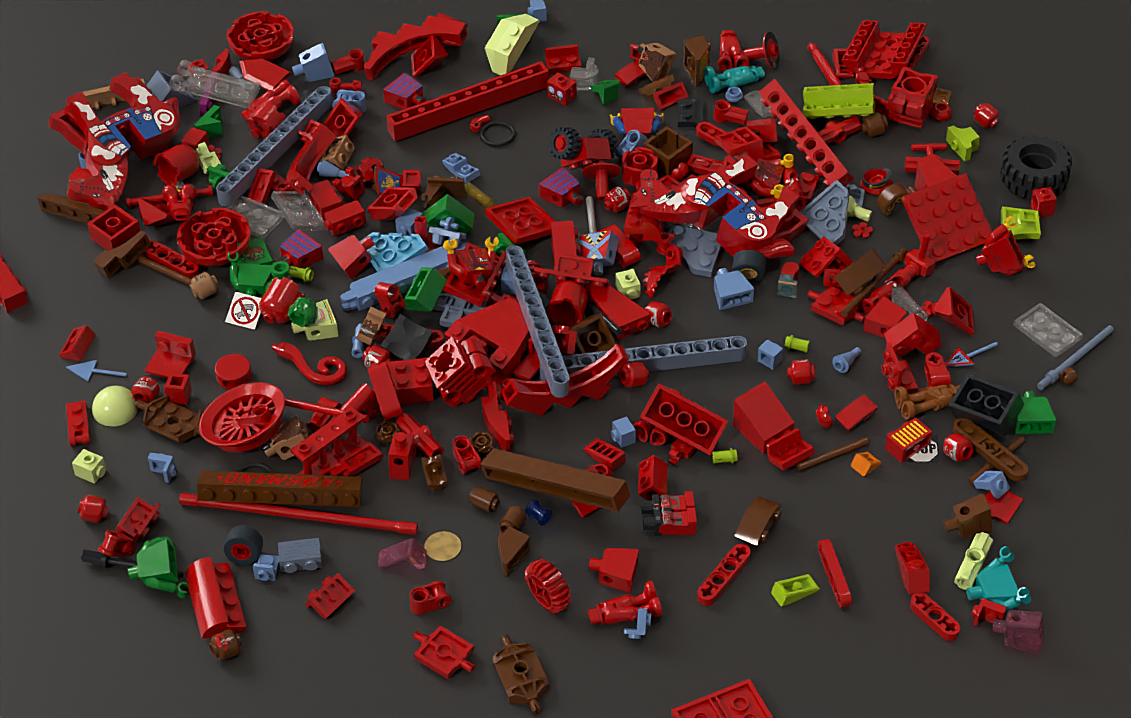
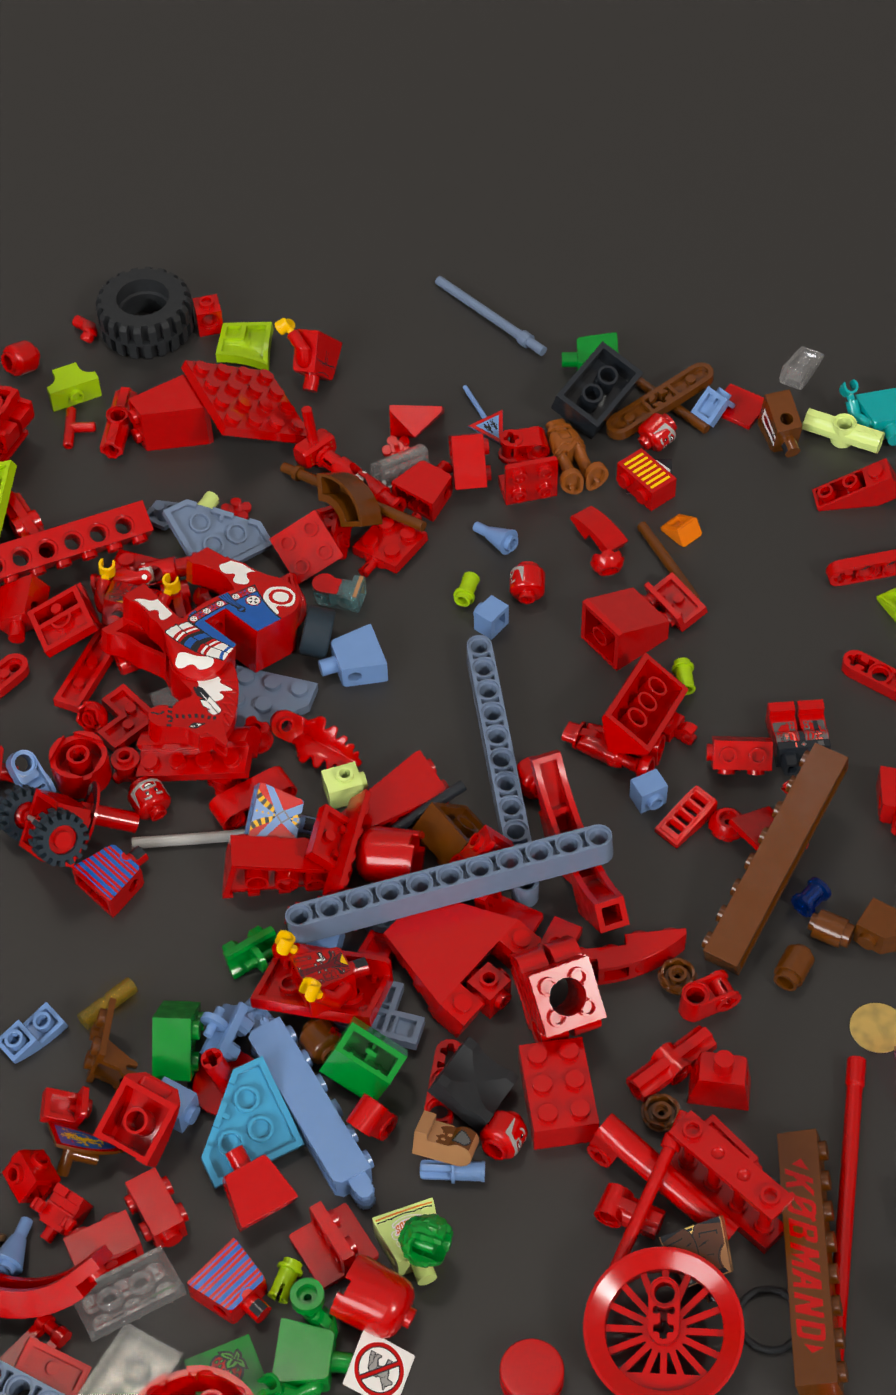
camera: 90 degrees left, 5 degrees up
(294, 354) = (484, 1277): red plant -> none
(321, 288) = (331, 1243): none -> red bracket
(385, 391) = (606, 1095): red beam -> none
(434, 473) = (749, 1034): reddish brown hips -> none
(521, 219) = (188, 928): red plate -> none
(659, 314) = (406, 743): red head -> none
(666, 149) = (53, 719): reddish brown piece -> none
(758, 520) = (805, 637): reddish brown brick -> none
(874, 124) = (25, 478): reddish brown head -> none
(876, 180) = (139, 482): red piece -> none
(891, 196) = (189, 461): reddish brown animal -> none
(1048, 329) = (444, 334): clear plate -> none
(1049, 544) = (800, 367): none -> clear slope
(1068, 376) = (526, 321): reddish brown hinge -> none

